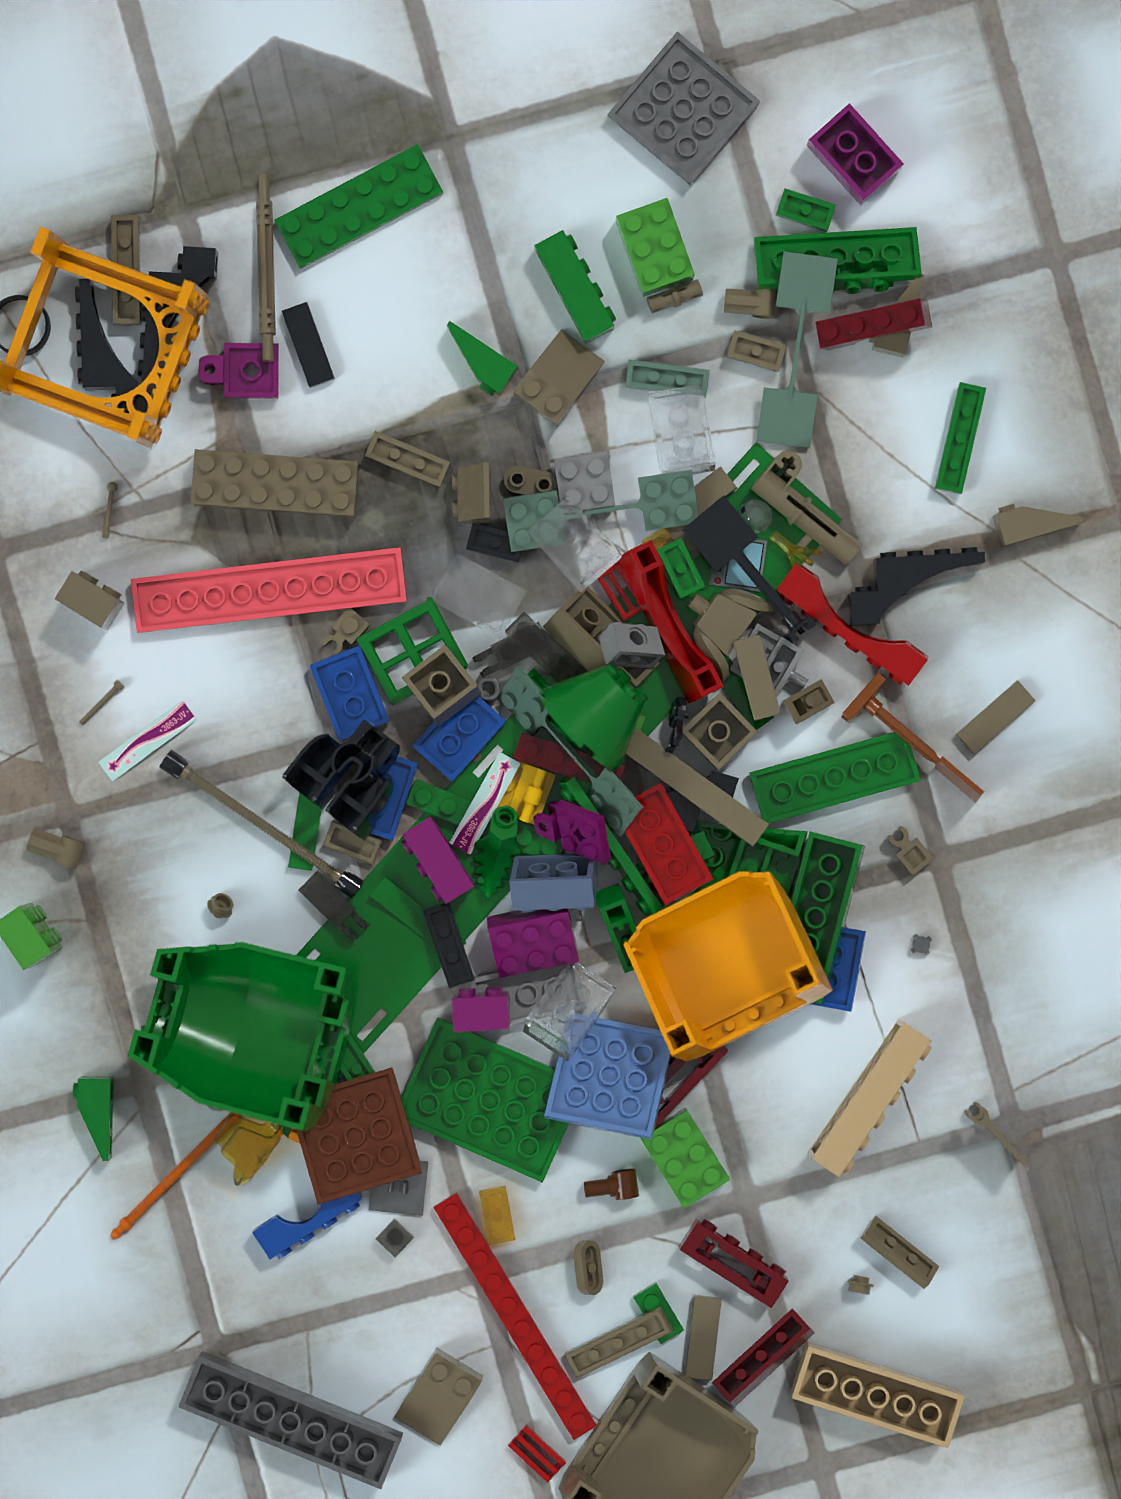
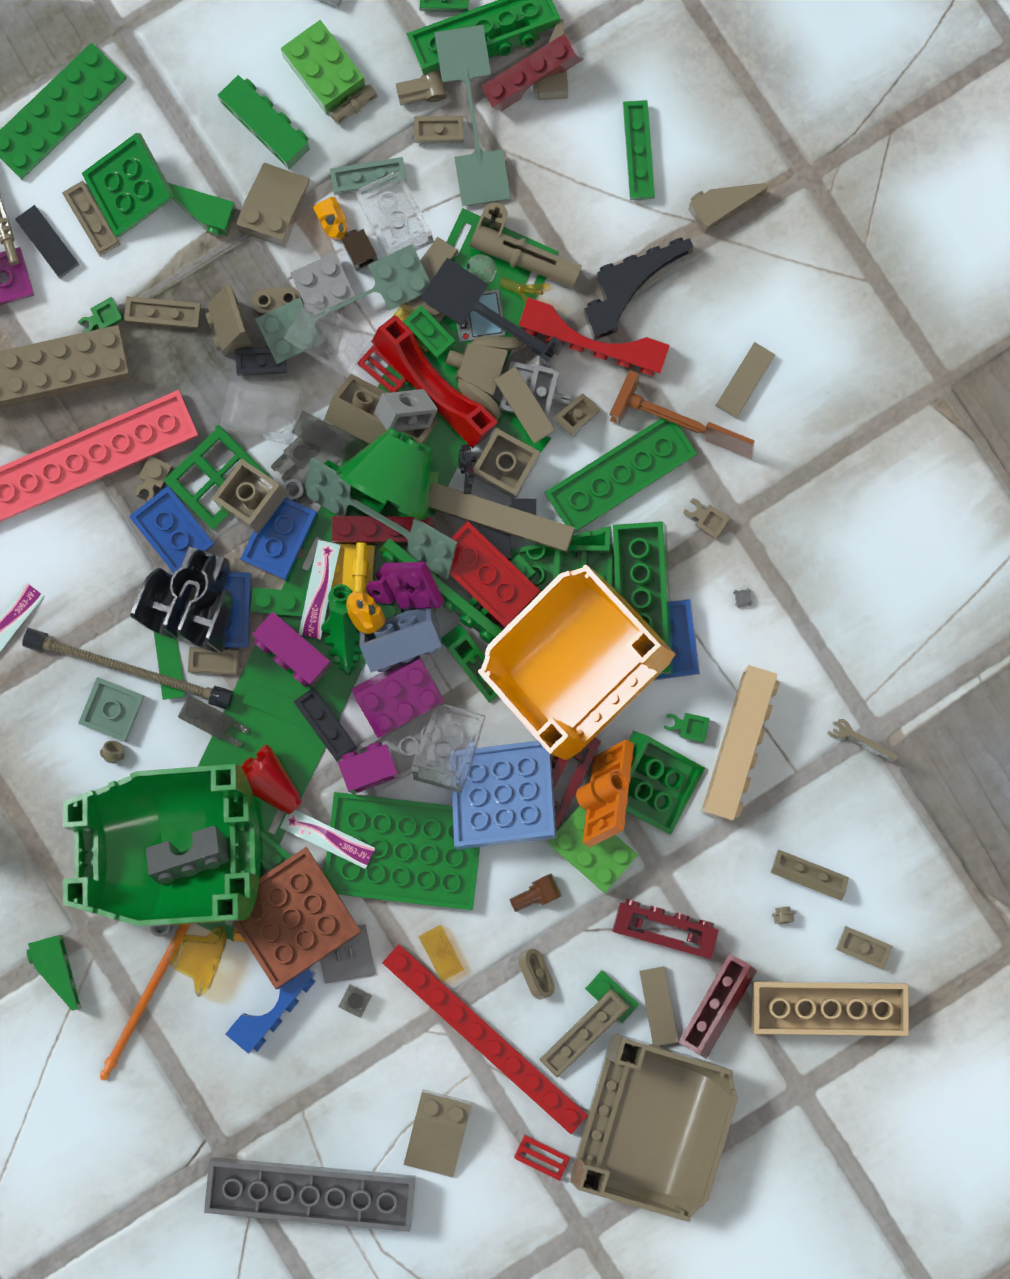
camera: 15 degrees left, 5 degrees down
(232, 861) = (111, 709): none -> sand green plate
(288, 1043) = (206, 852): none -> dark grey arch
(346, 444) = (104, 315): none -> green plate
(362, 333) = (91, 218): none -> dark tan tile
(375, 986) = (270, 781): none -> red cone
(411, 313) = (128, 185): none -> green plate
(415, 1062) = (328, 838): none -> sticker
(525, 845) = (364, 612): none -> light orange rock
(615, 413) = (331, 218): none -> light orange rock
(634, 454) = (359, 249): none -> dark brown brick
(717, 1109) = (606, 793): none -> orange plate
(767, 1107) = (659, 782): none -> green slope
(826, 1063) = (692, 726): none -> green plate
(932, 1342) = (864, 947): none -> dark tan plate

